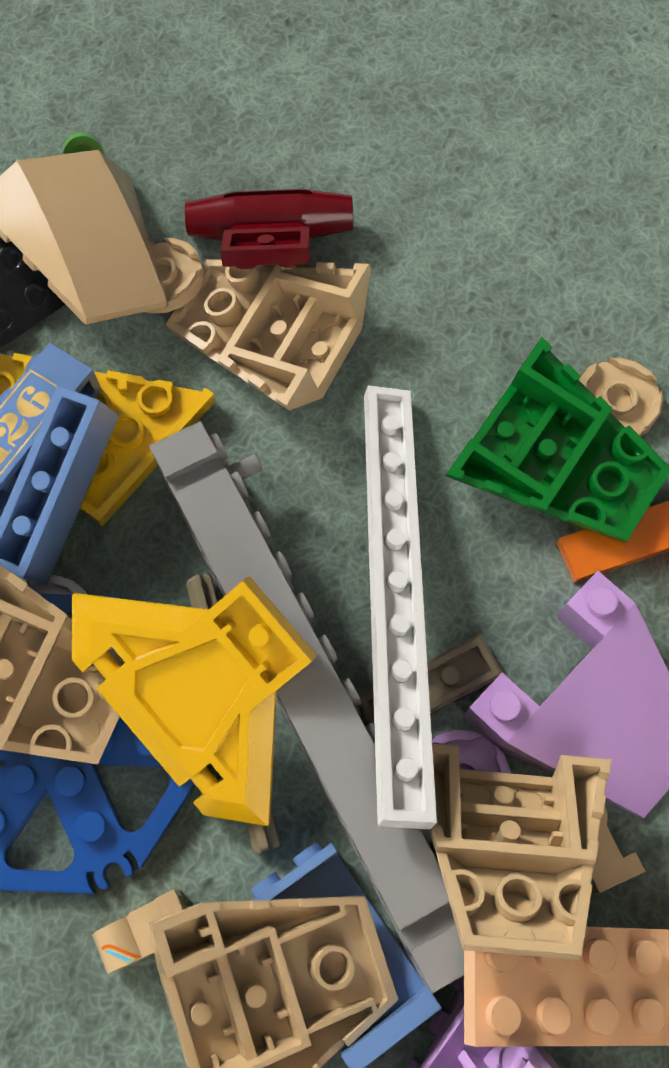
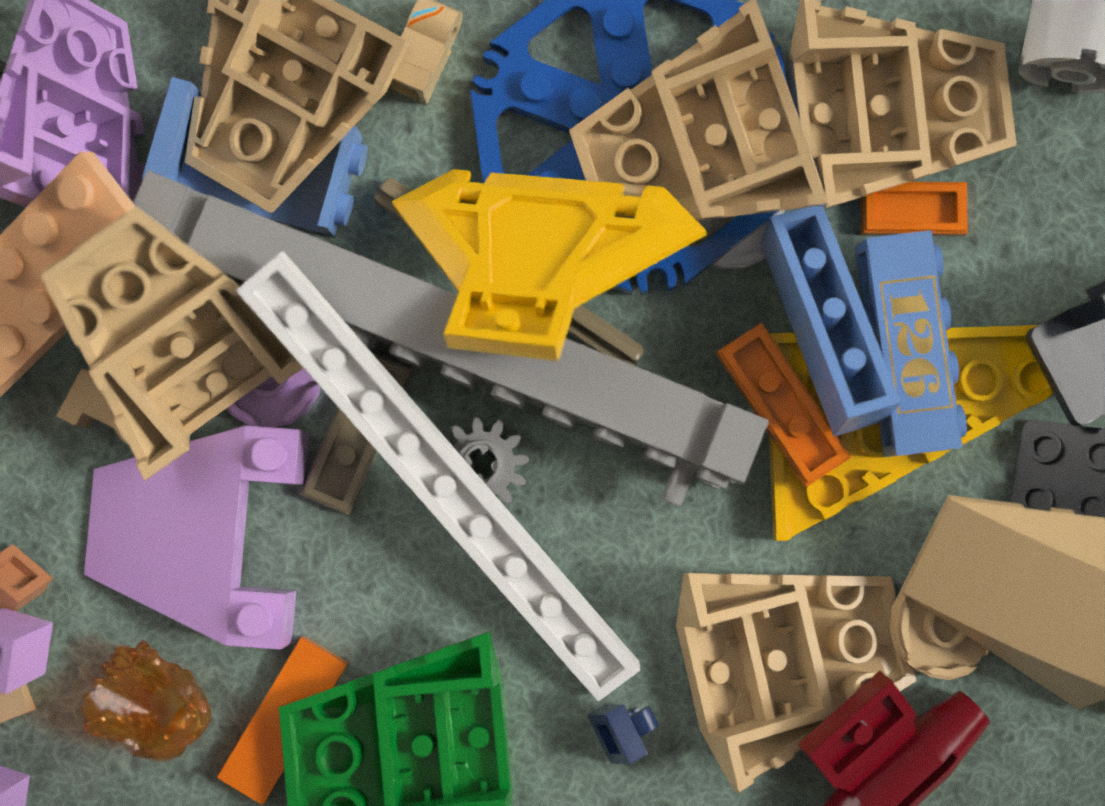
camera: 135 degrees right, 15 degrees up
(131, 468) = (781, 398): none -> orange tile
(343, 591) = (502, 449): none -> light grey gear
(410, 362) = (621, 731): none -> dark blue tile

